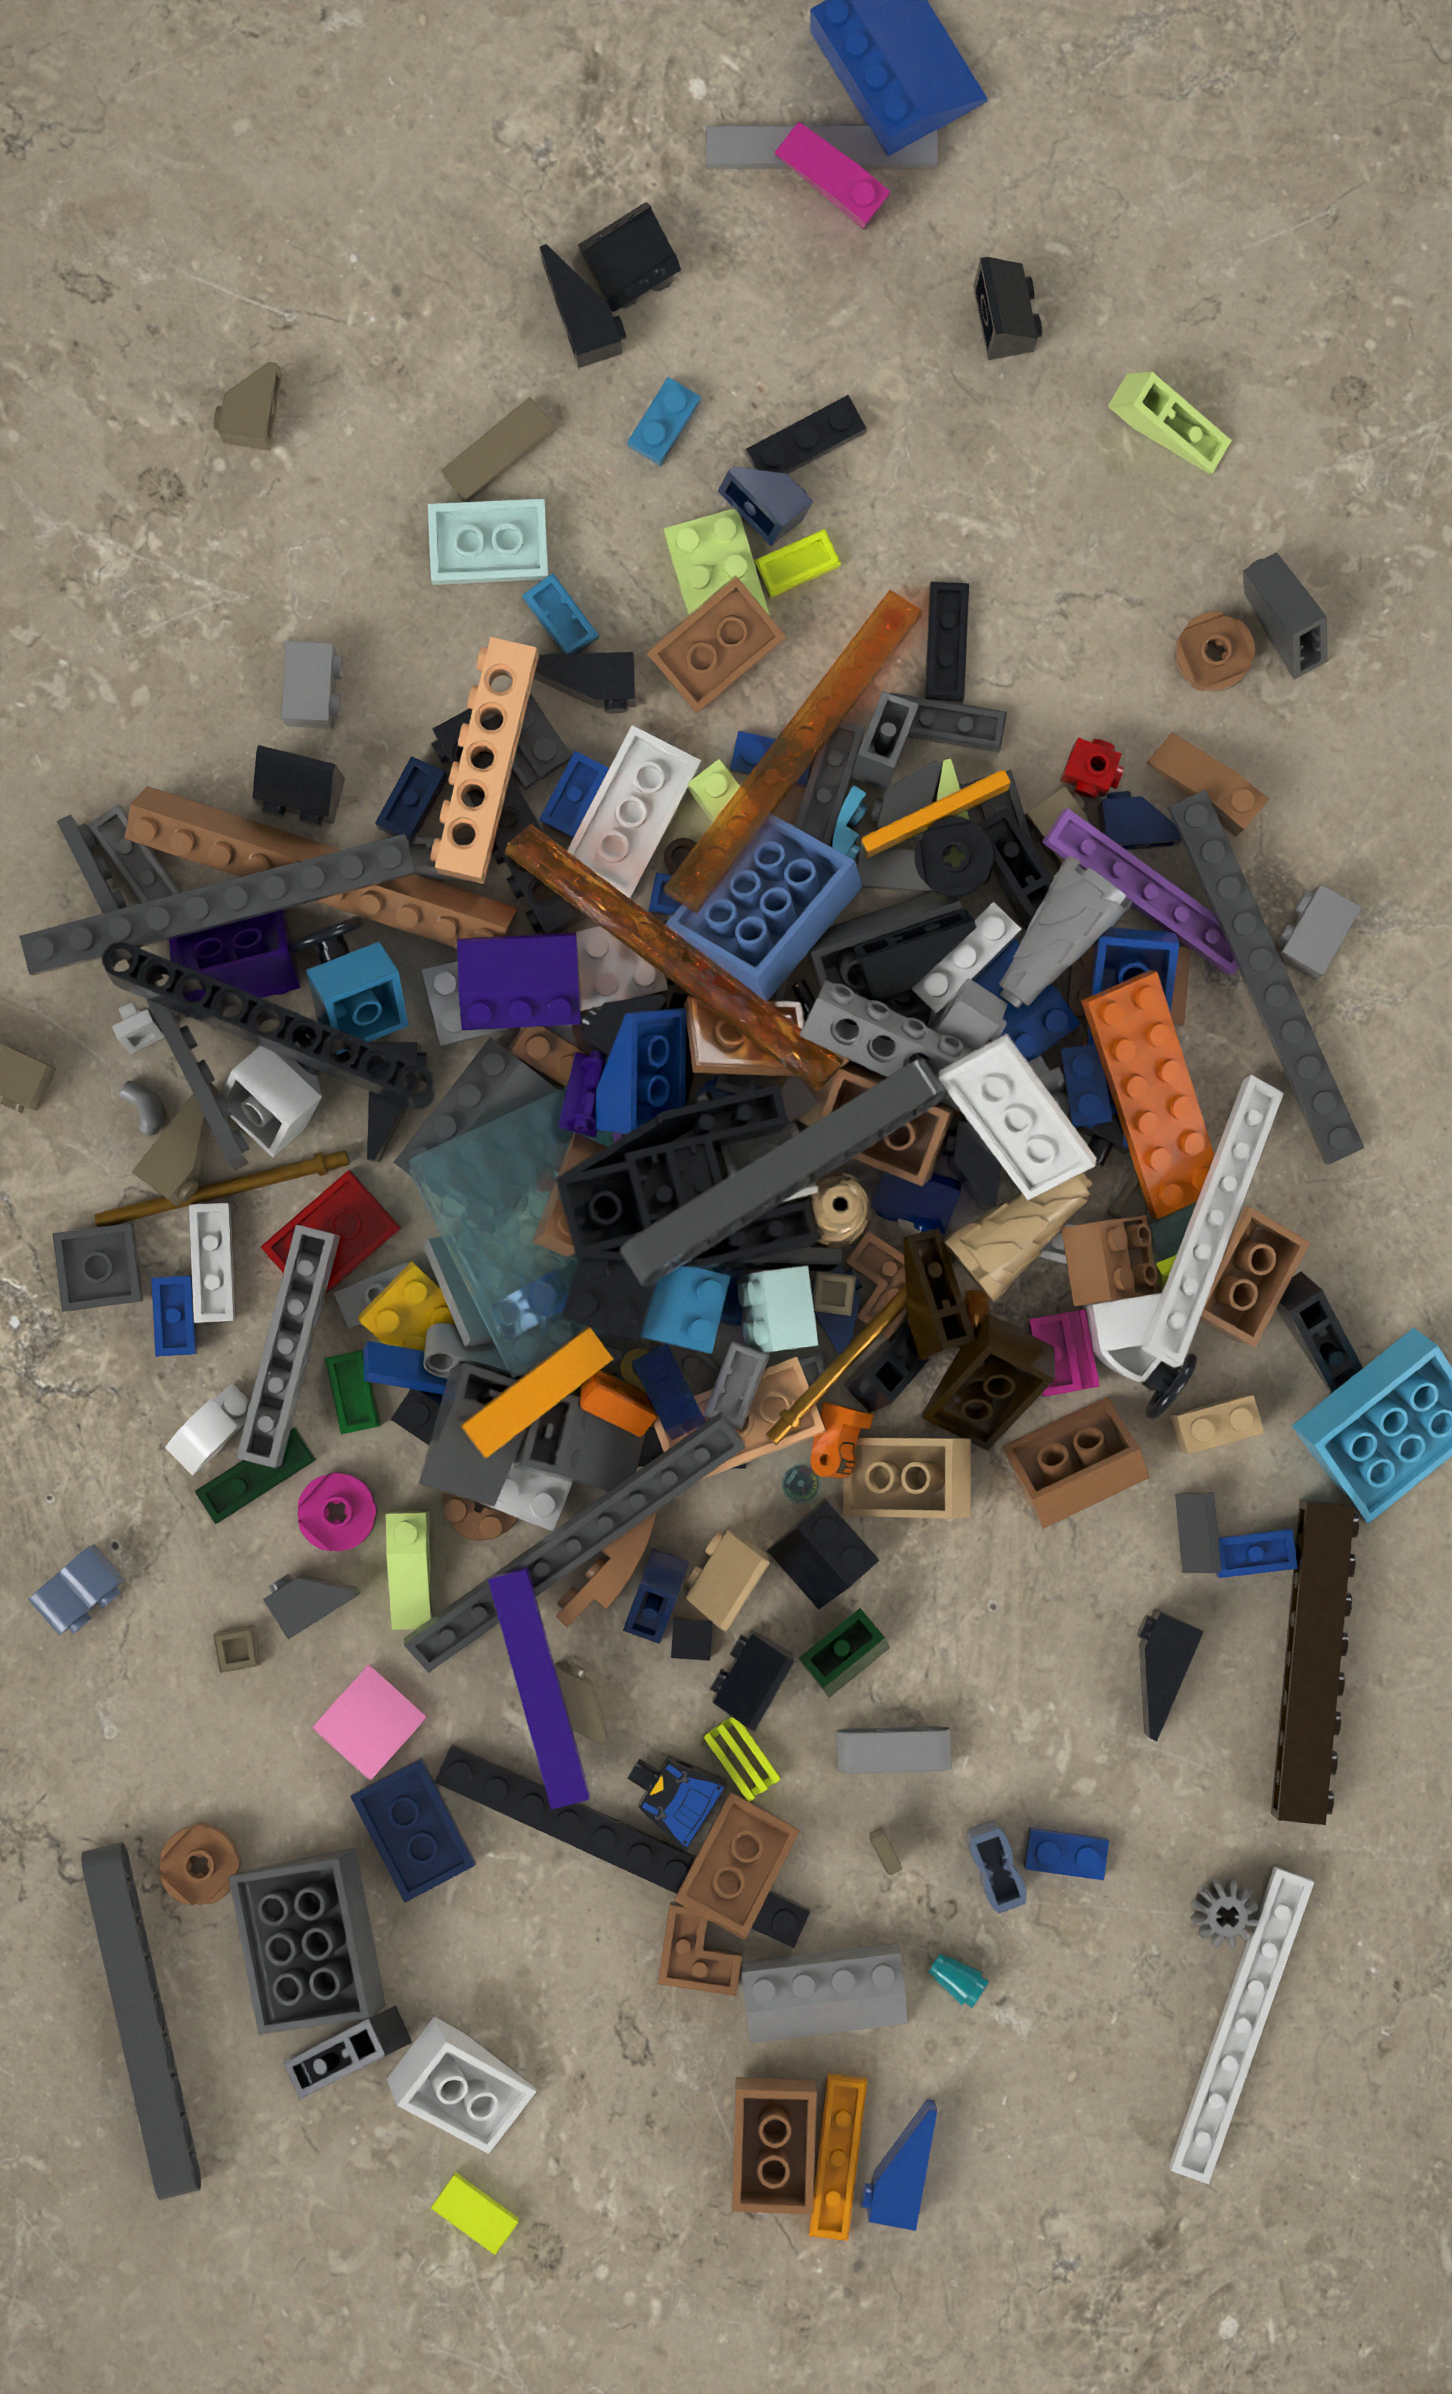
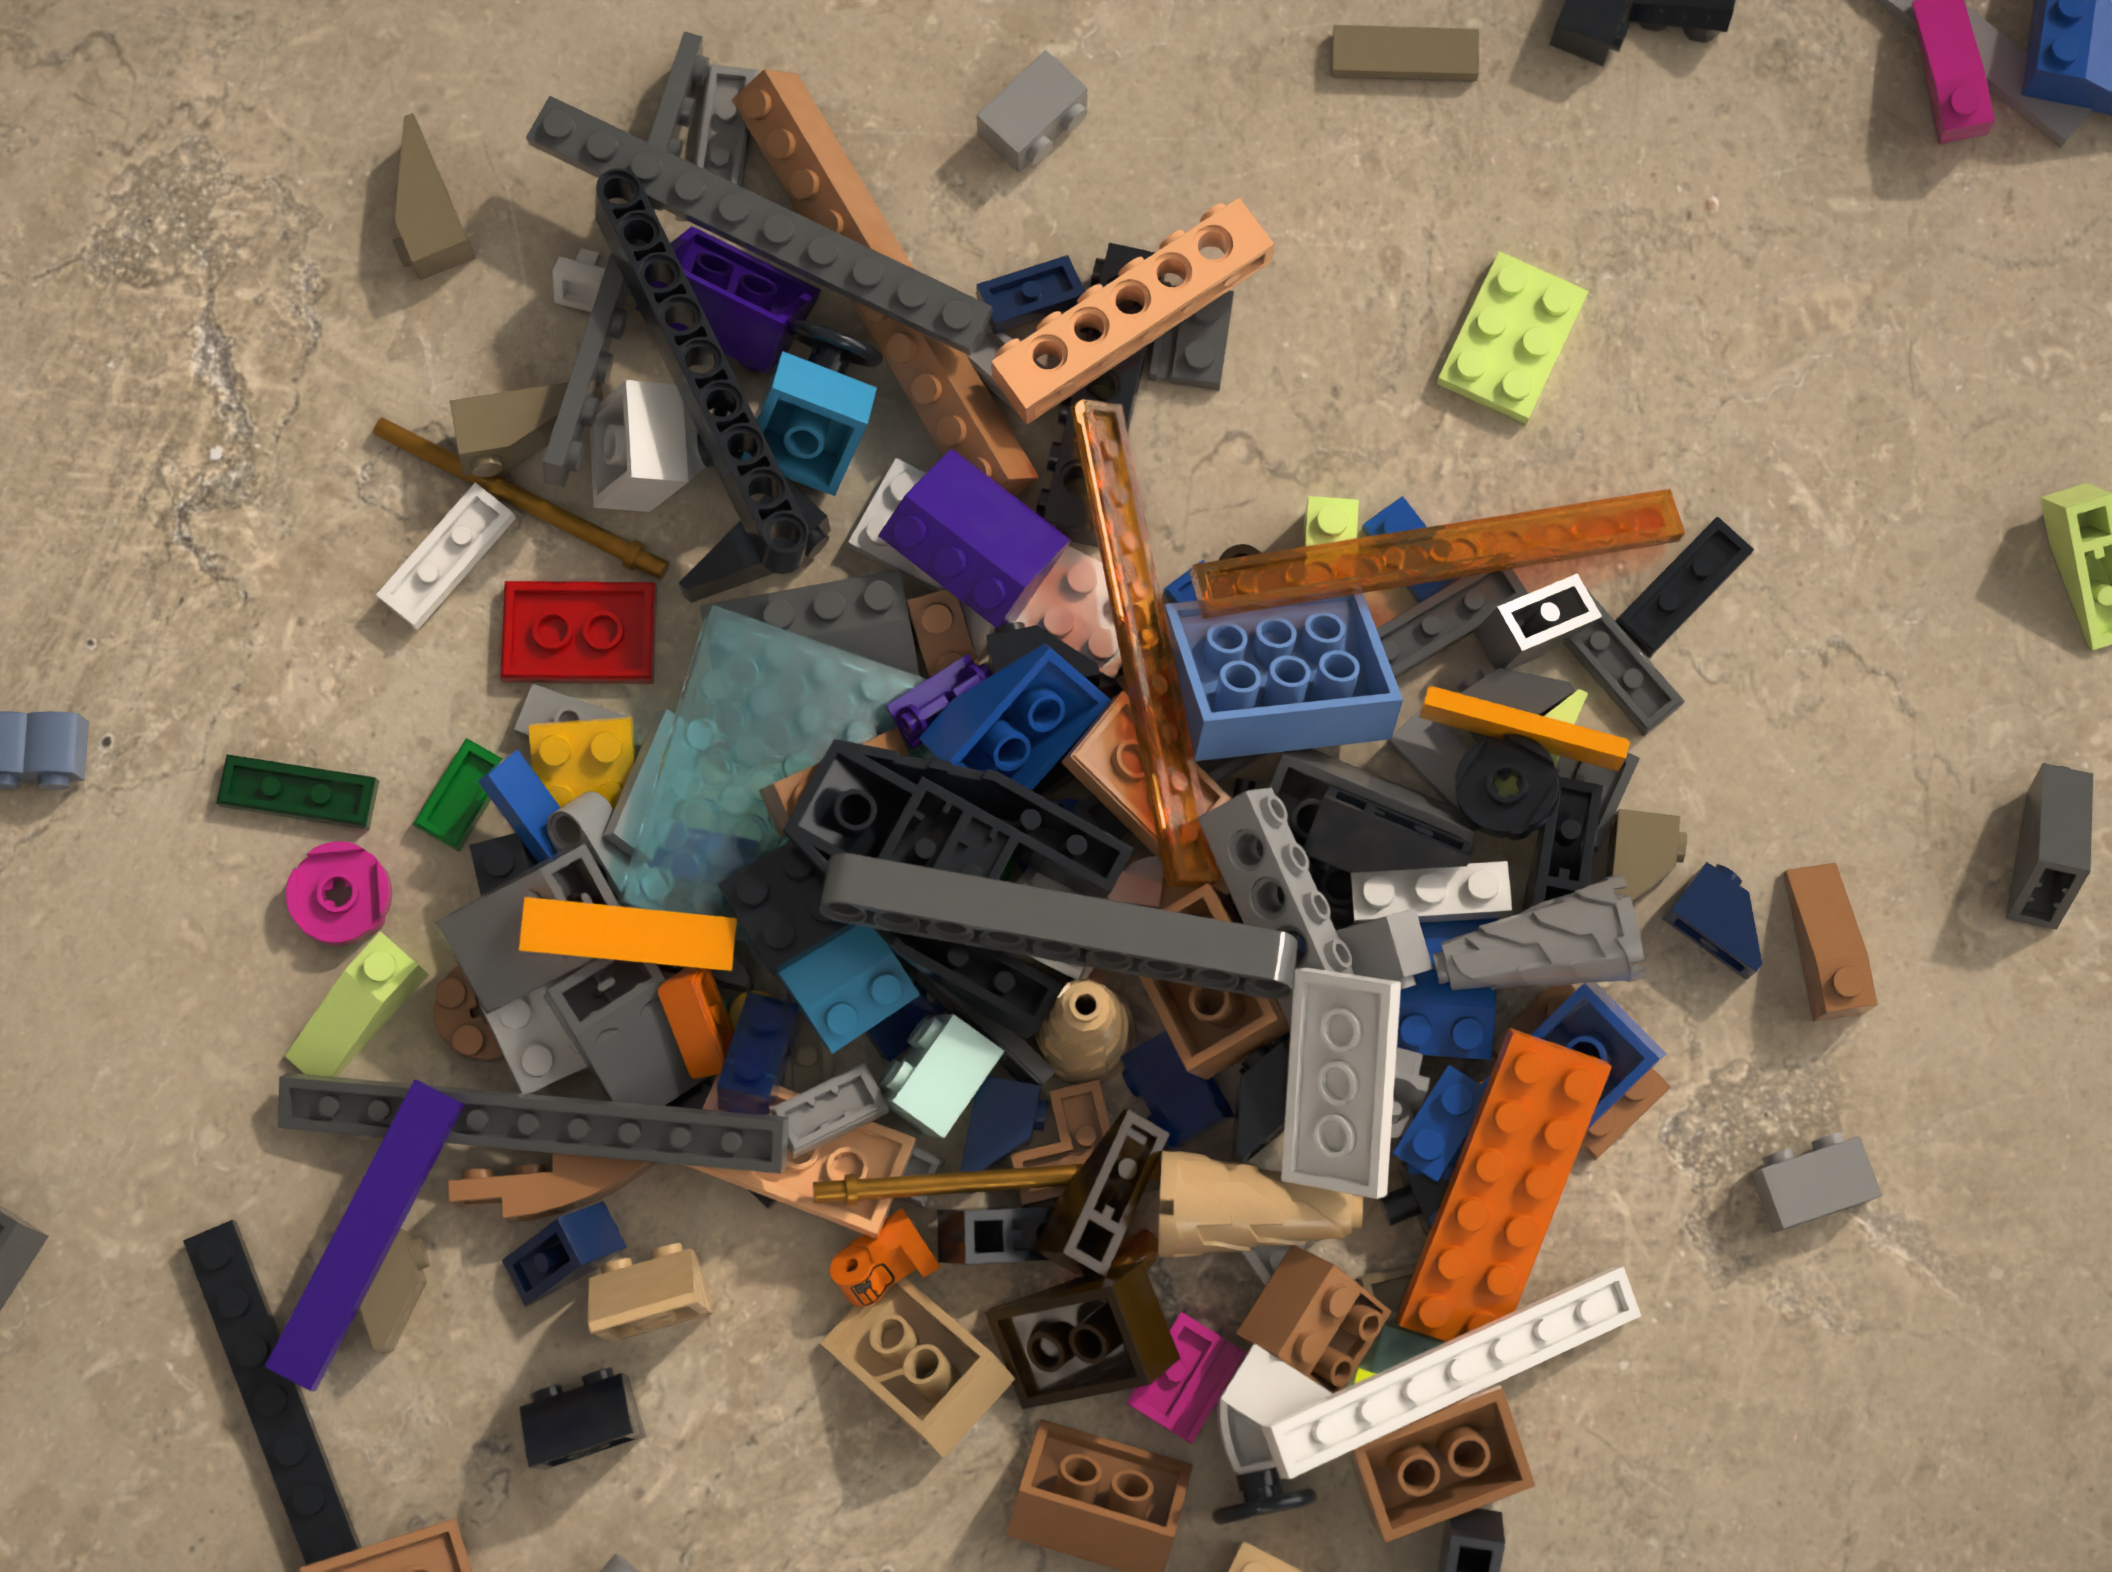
camera: 50 degrees right, 10 degrees down
(97, 1267) = (338, 467): dark grey plate -> none
(148, 1105) = (524, 363): light grey arm -> none
(173, 1316) = (362, 572): blue plate -> none
(209, 1429) = (297, 704): white brick -> none
(237, 1649) = (123, 941): dark tan tile -> none
(288, 1346) = (439, 690): light grey brick -> none
(296, 786) = (935, 188): black slope -> none
(305, 1601) = (228, 952): dark grey slope -> none
(369, 1722) = (177, 1125): bright pink slope -> none
(413, 1829) = (119, 1269): dark blue plate -> none
(488, 541) = (1319, 124): light aqua plate -> none
(560, 616) = (1326, 248): dark azure plate -> none
(573, 794) = (1190, 421): blue plate -> none
(594, 678) = (1308, 331): black slope -> none
(633, 809) = (1233, 483): white plate -> none
(664, 421) = (1588, 157): dark azure plate -> none
(677, 1796) = (399, 1473): torso -> none
(691, 1638) = (559, 1329): black tile -> none
(716, 644) = (1452, 394): medium nougat plate -> none
(760, 1785) = (479, 1494): neon yellow tile -> none
(766, 500) = (1621, 305): dark blue slope -> none
(797, 563) = (1601, 392): neon yellow tile -> none
(801, 1483) = (807, 1273): clear light blue tile -> none
(808, 438) = (1711, 287): black plate -> none
(822, 1554) = (765, 1361): black slope -> none
(833, 1293) = (1007, 1106): dark tan tile -> none
(844, 1652) = (694, 1478): dark green brick -> none
(851, 813) = (1442, 664): medium azure slope -> none
(1005, 308) = (2017, 323): black slope -> none
(1082, 776) = (1723, 825): red brick -> none
(1146, 888) = (1676, 995): medium lavender plate -> none
(1223, 631) = (1972, 807): medium nougat plate -> none
(1265, 977) = (1721, 1183): dark grey plate -> none

